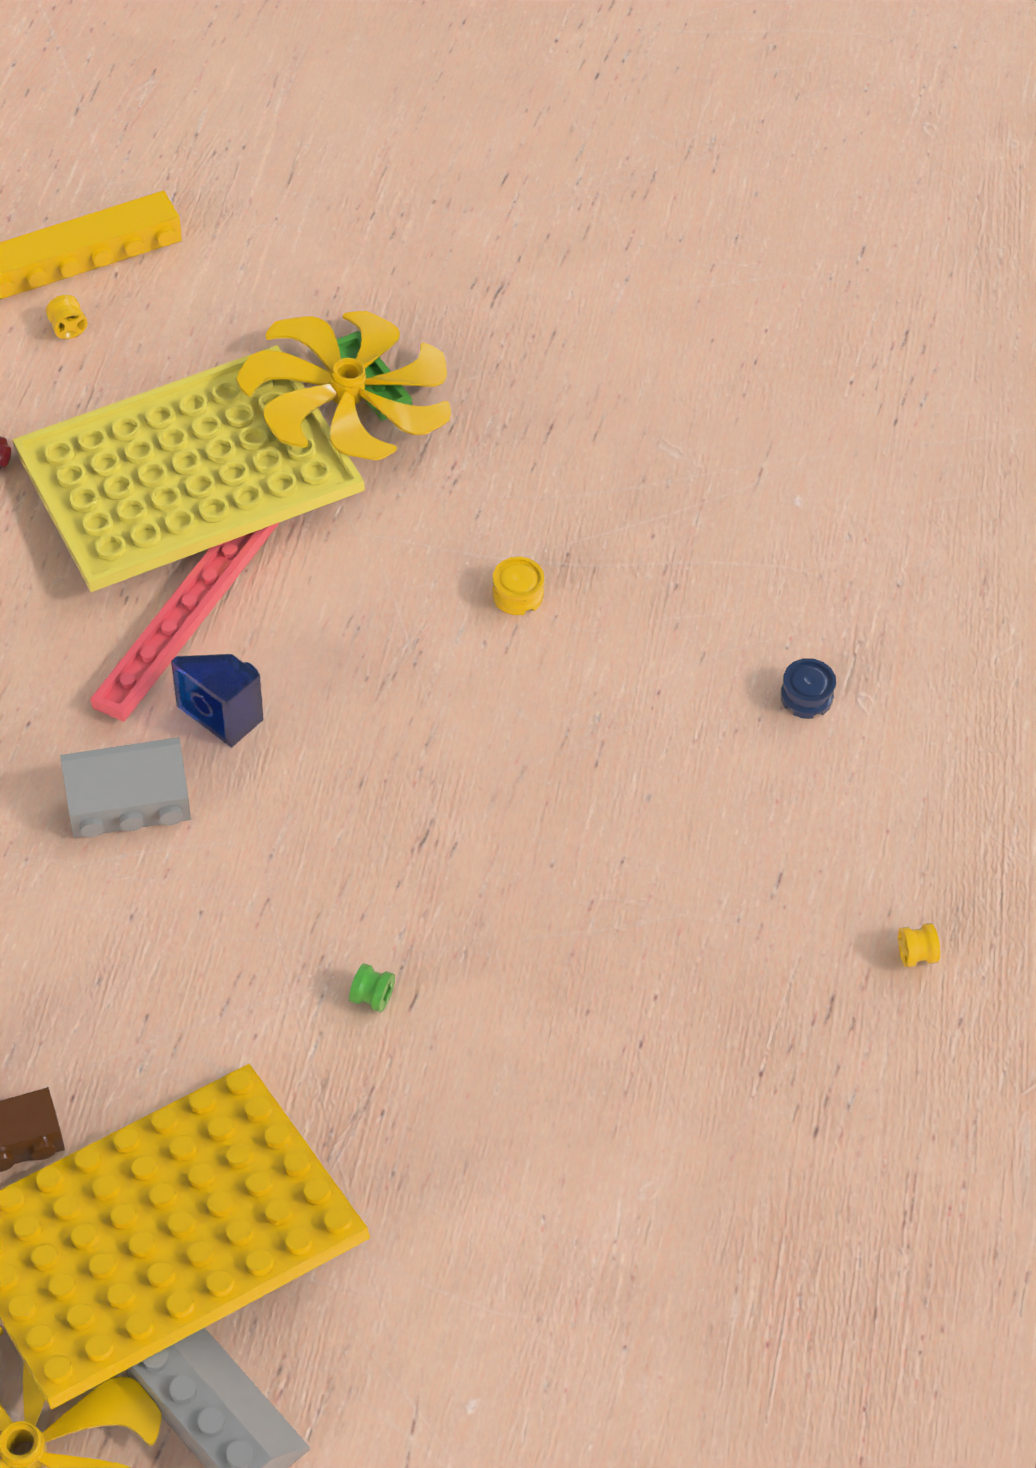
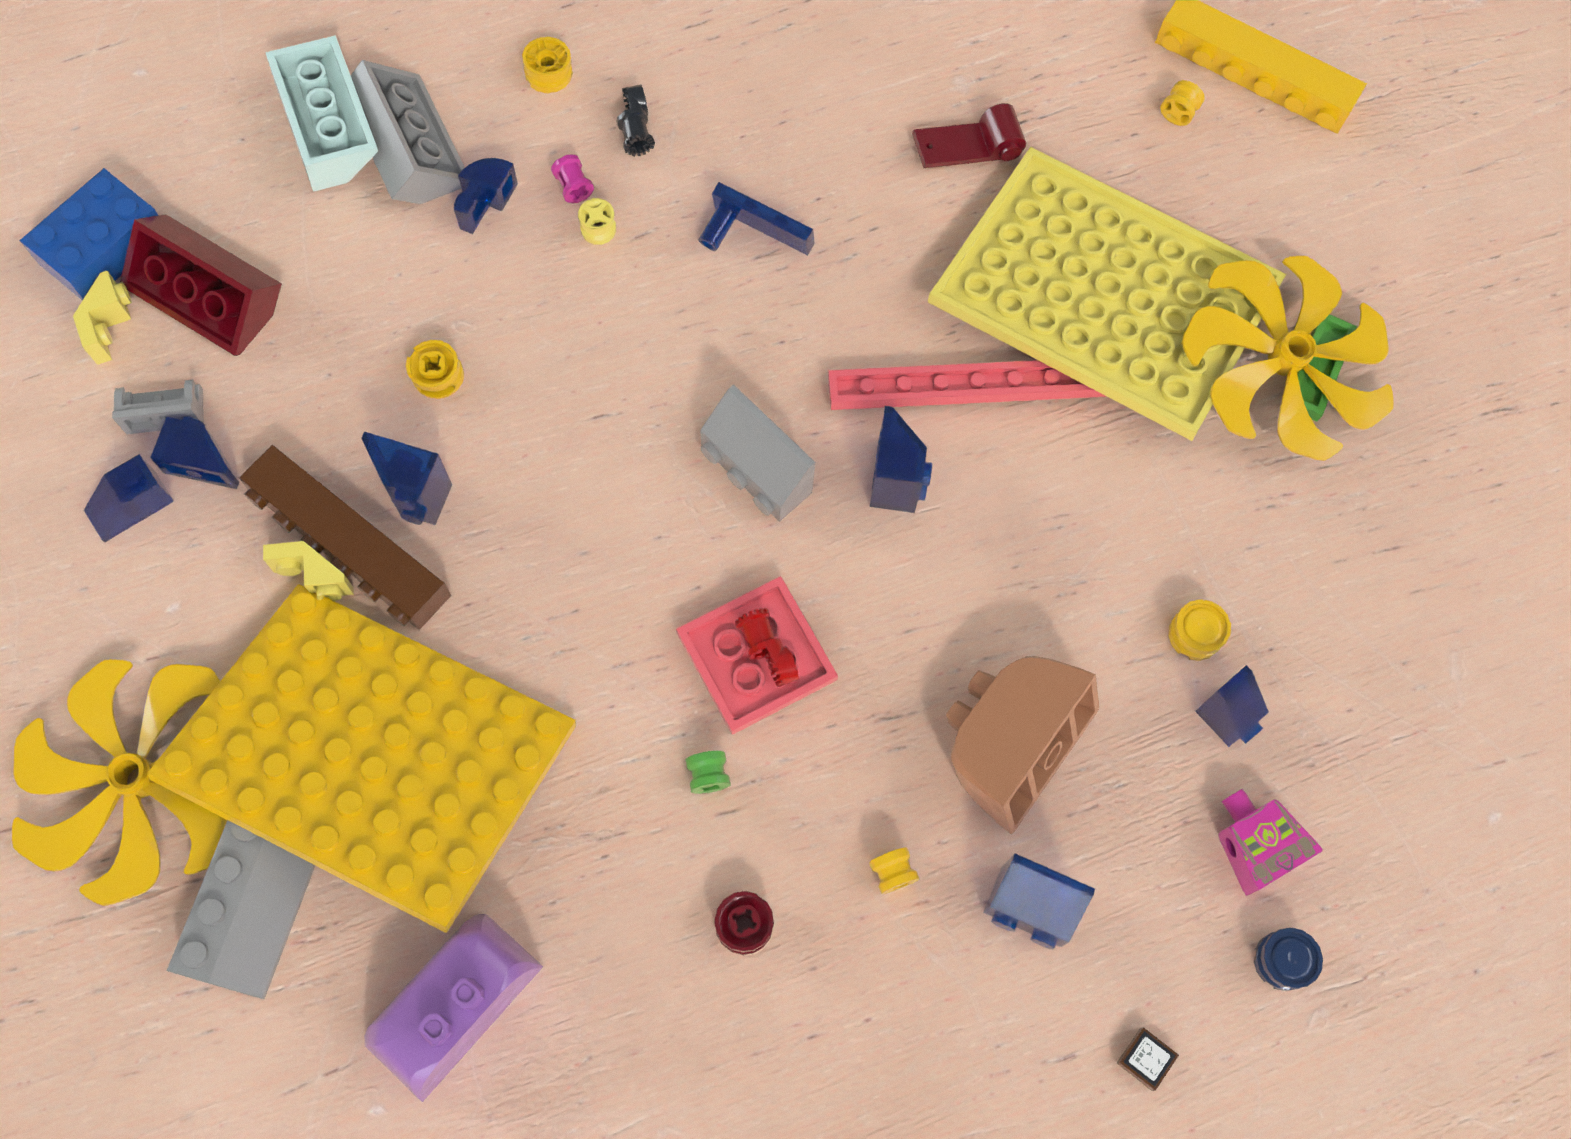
camera: 55 degrees right, 15 degrees up
(297, 897) = (743, 686): none -> coral plate
(306, 875) = (764, 644): none -> red connector
(427, 1290) = (450, 1004): none -> medium lavender hips
(508, 746) = (1019, 732): none -> nougat hips
(516, 1034) = (744, 922): none -> dark red wheel
(553, 902) = (894, 870): none -> yellow wheel
(597, 598) = (1235, 708): none -> clear blue slope
(648, 813) = (1038, 901): none -> clear blue slope
(711, 647) = (1263, 842): none -> dark pink torso
(817, 824) = (1147, 1059): none -> tile

